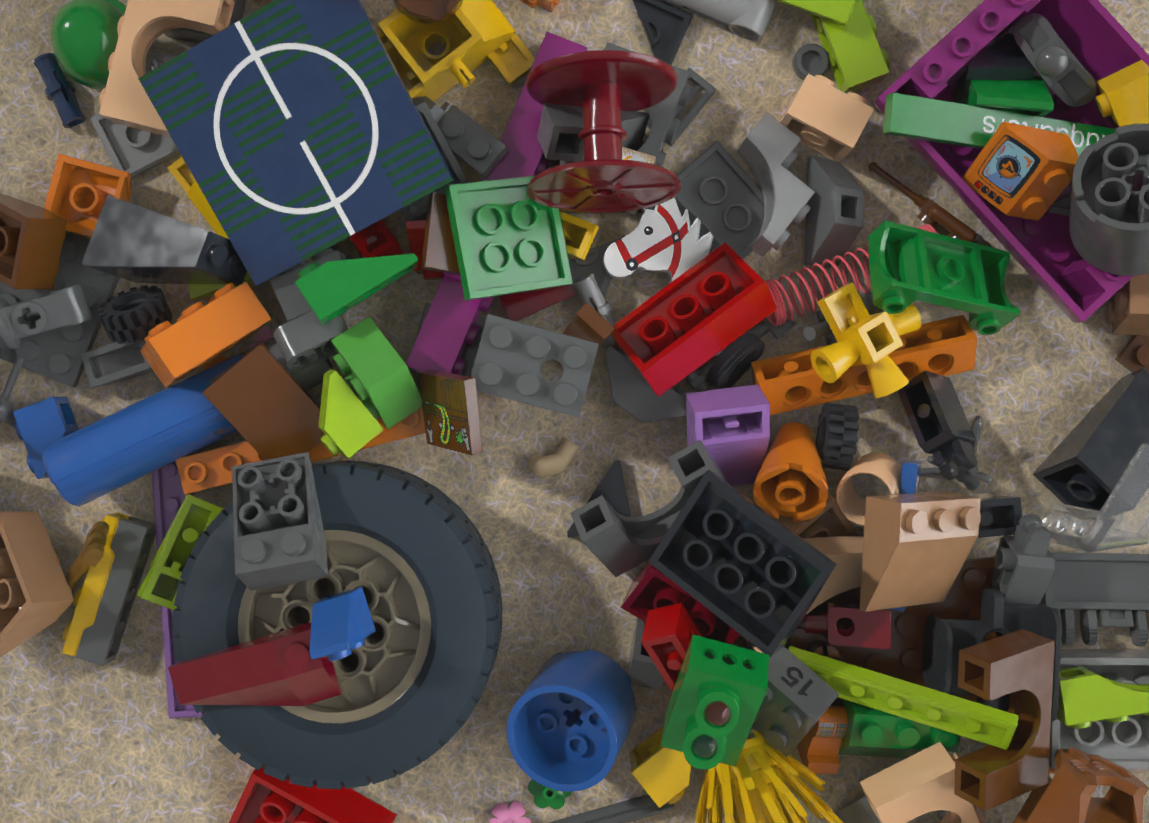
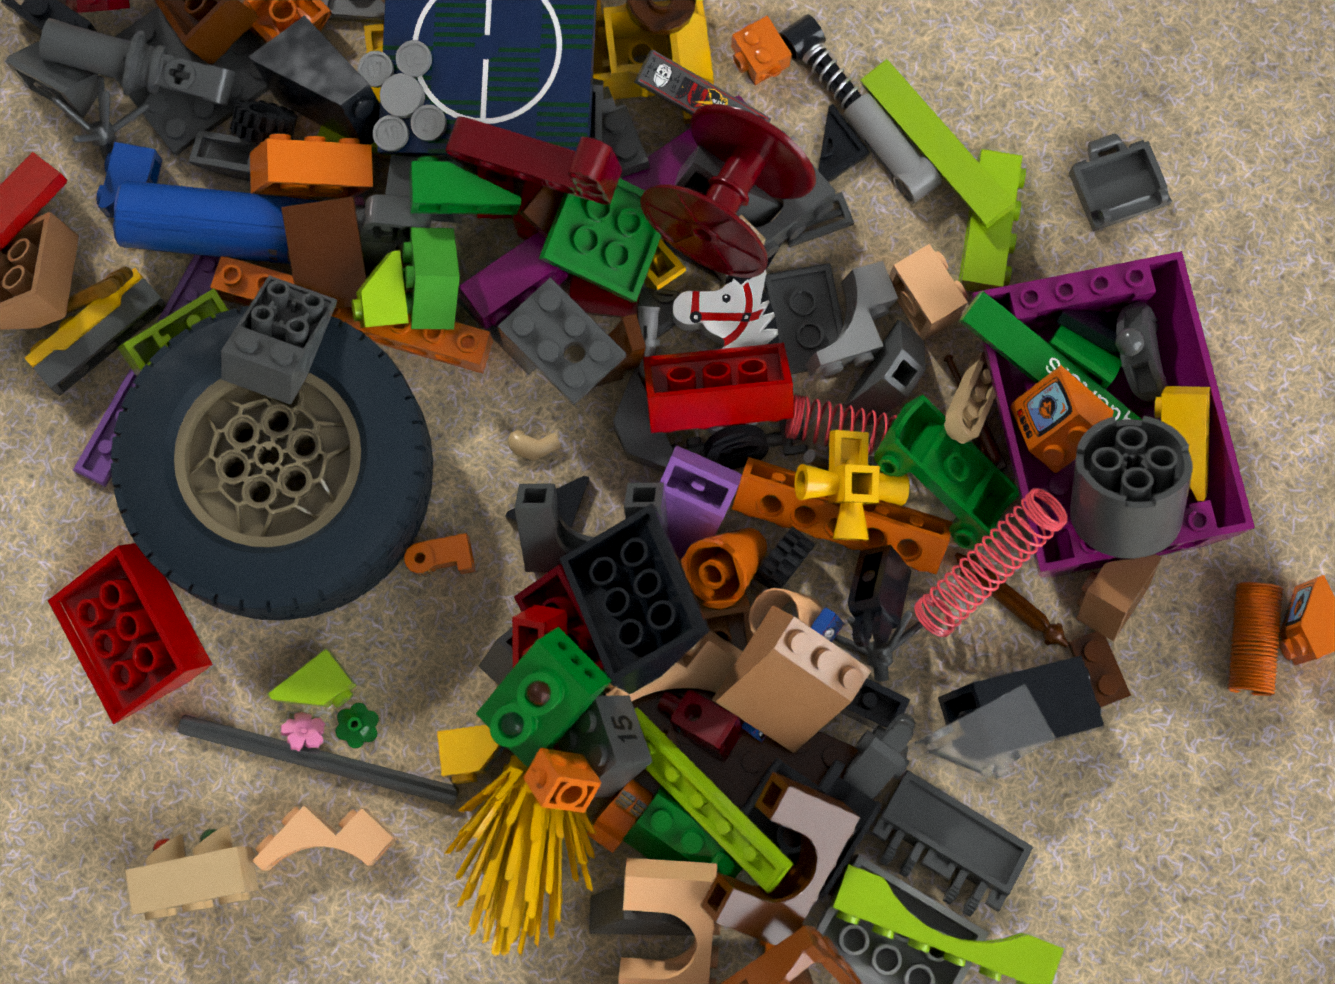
camera: 30 degrees right, 10 degrees down
(246, 221) = (402, 96): none -> light grey piece
(258, 673) = (193, 453): dark red wedge -> none
(340, 624) = (277, 446): blue slope -> none
(451, 411) = (472, 340): reddish brown tile -> none
(466, 199) = (585, 173): none -> dark red beam
(495, 780) = (317, 684): none -> lime slope
(507, 56) = (684, 87): none -> tile
(532, 603) = (439, 553): none -> orange leg
(568, 745) = (414, 659): blue brick -> none
(774, 763) = (562, 780): none -> orange head
(810, 60) = (948, 243): dark grey tile -> none
(925, 196) = (970, 402): none -> tan plate
(1048, 351) = (1019, 606): none -> reddish brown wheel
(1067, 279) = (1038, 516): none -> coral piece

